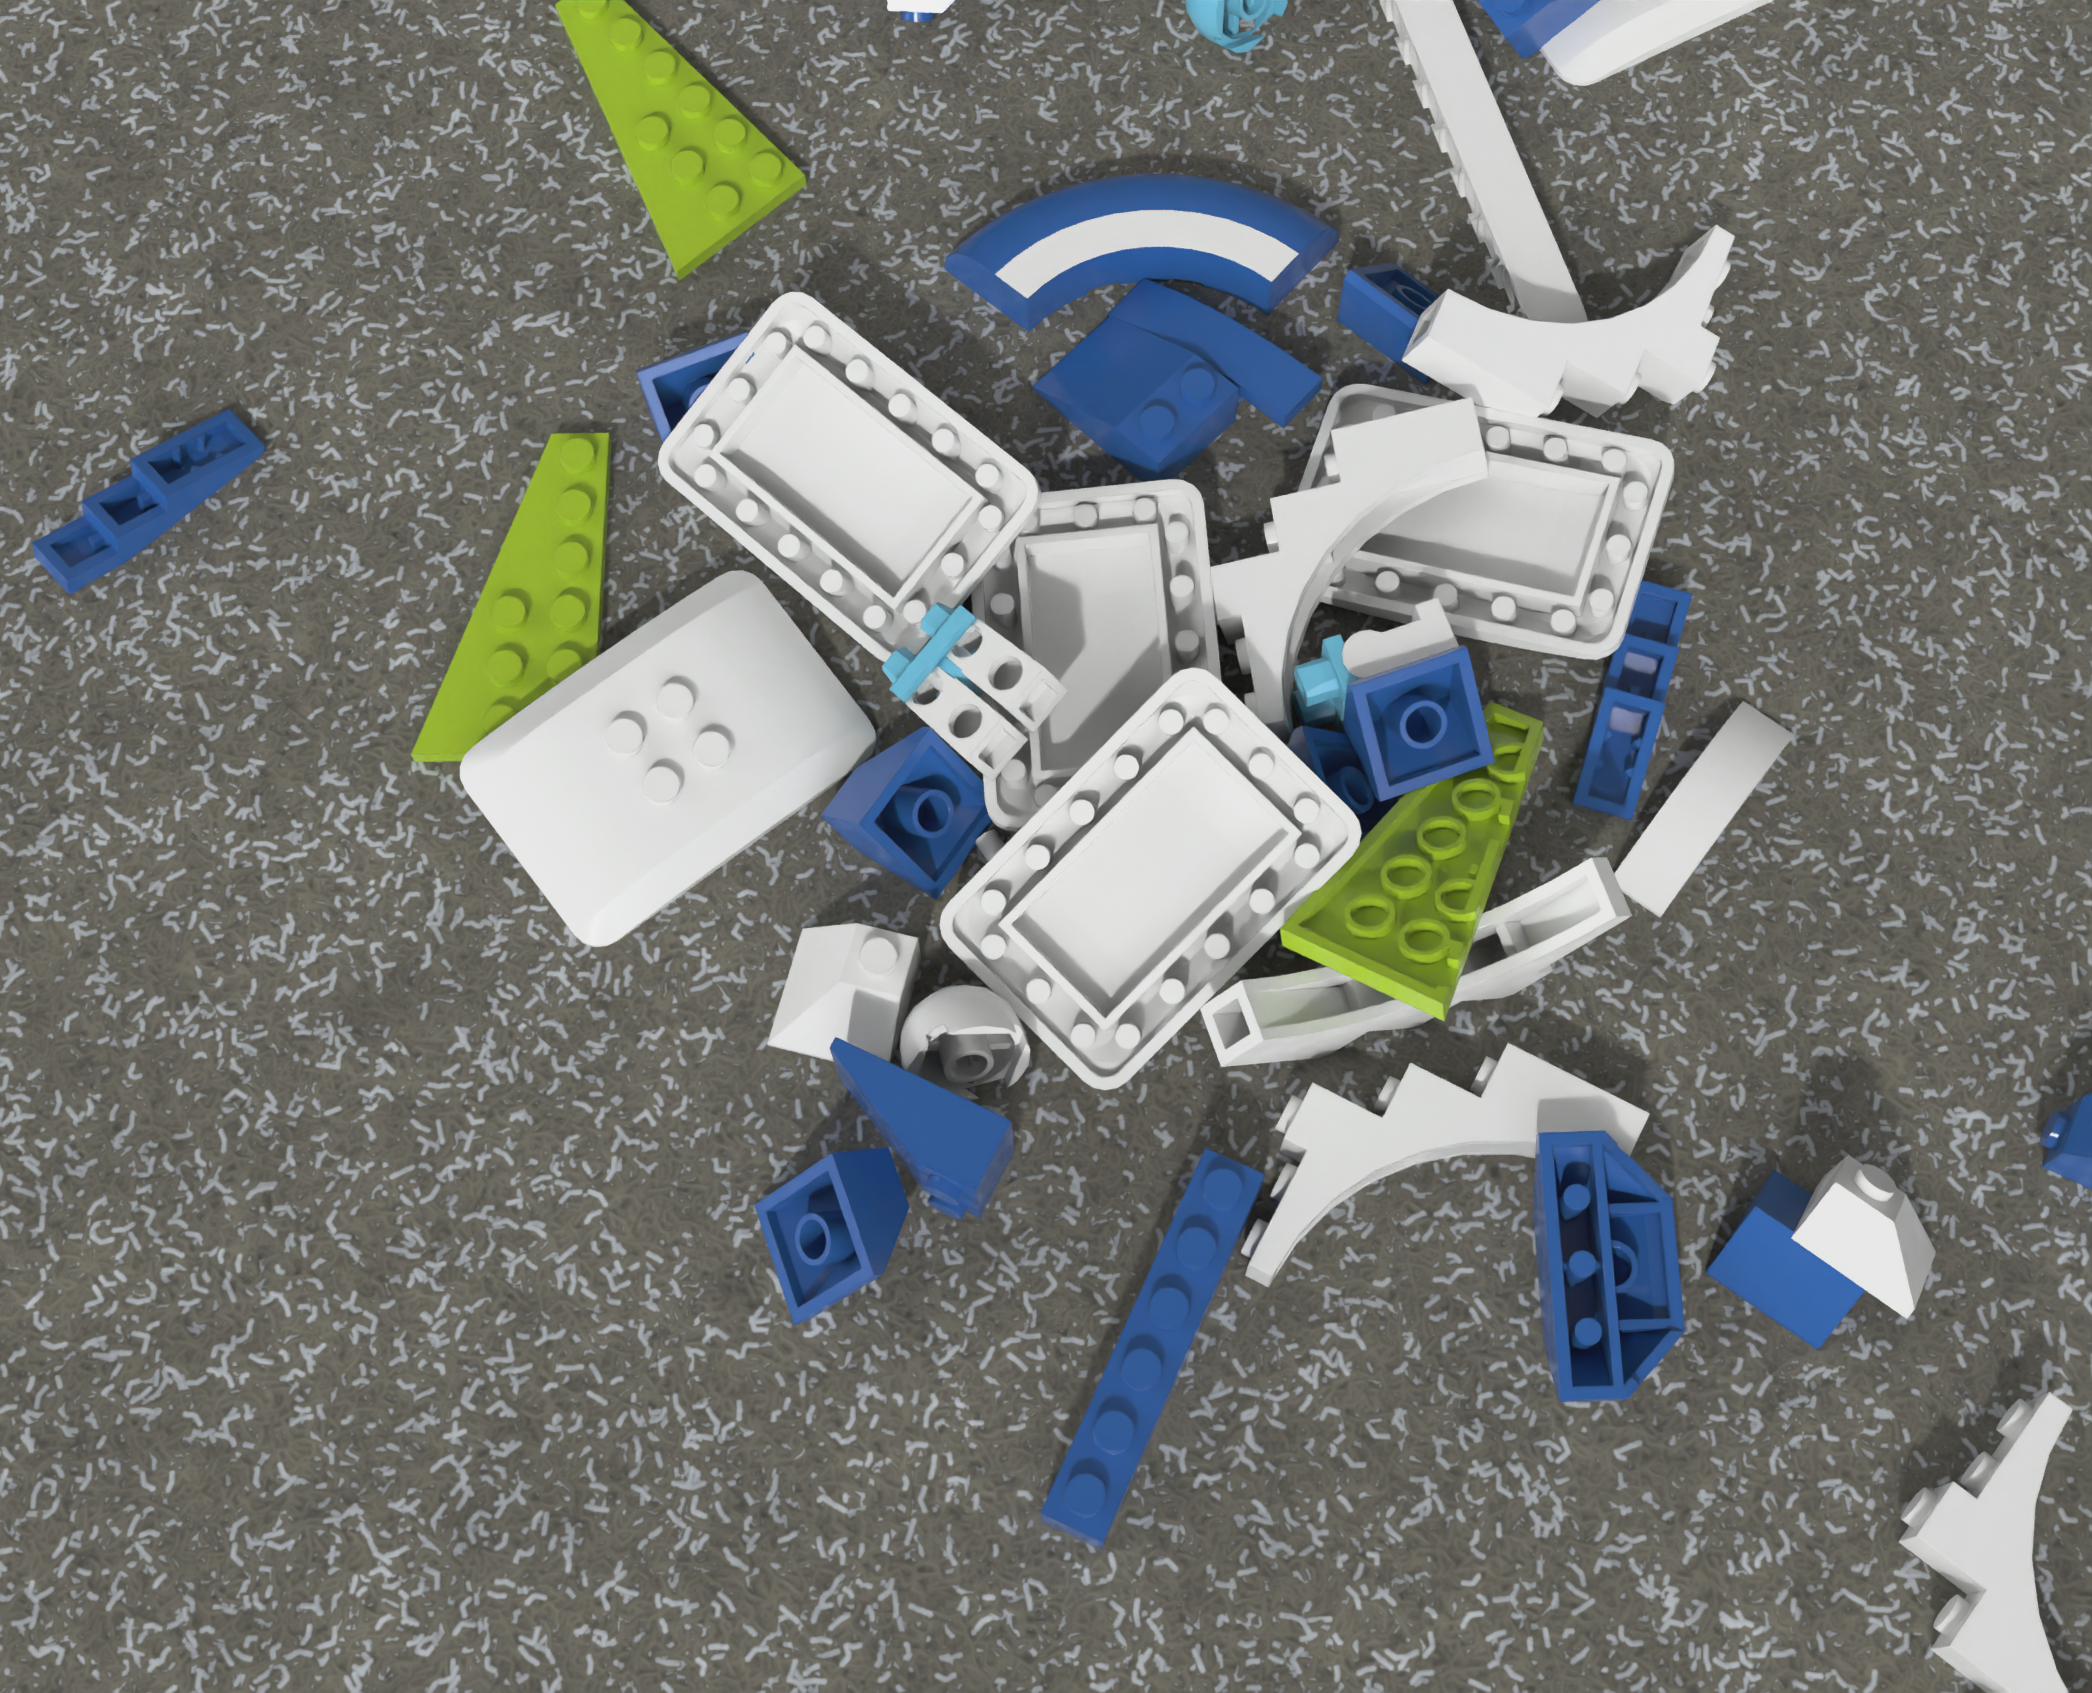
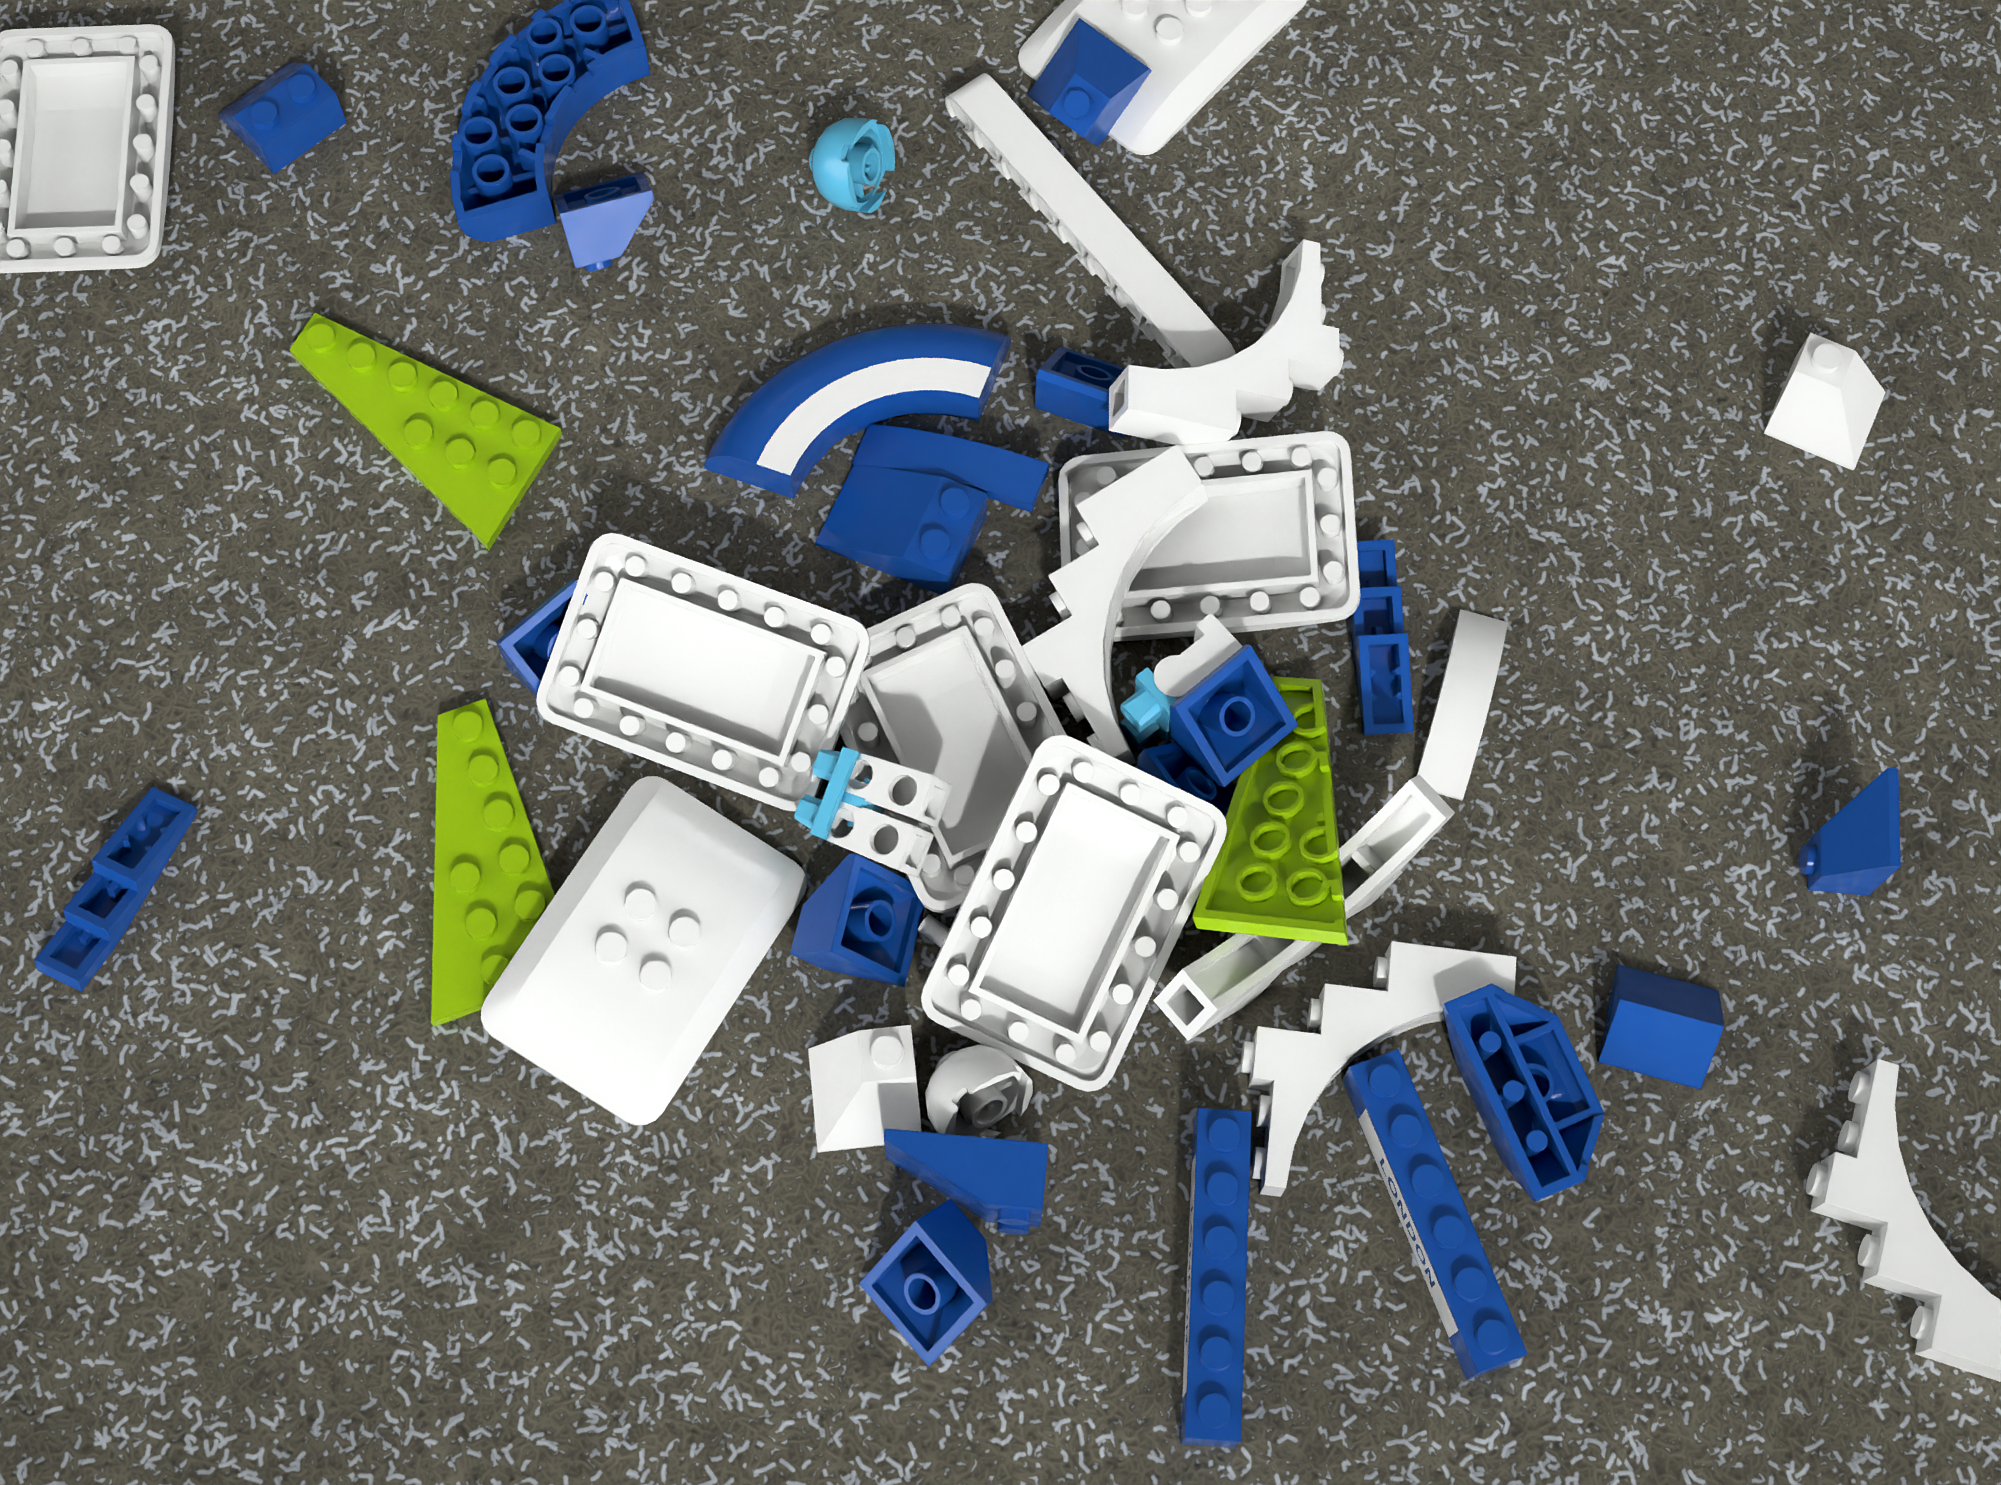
camera: 25 degrees left, 0 degrees up
(1435, 1375) = (1433, 1215): none -> blue brick
(1868, 1233) = (1706, 989): white slope -> none

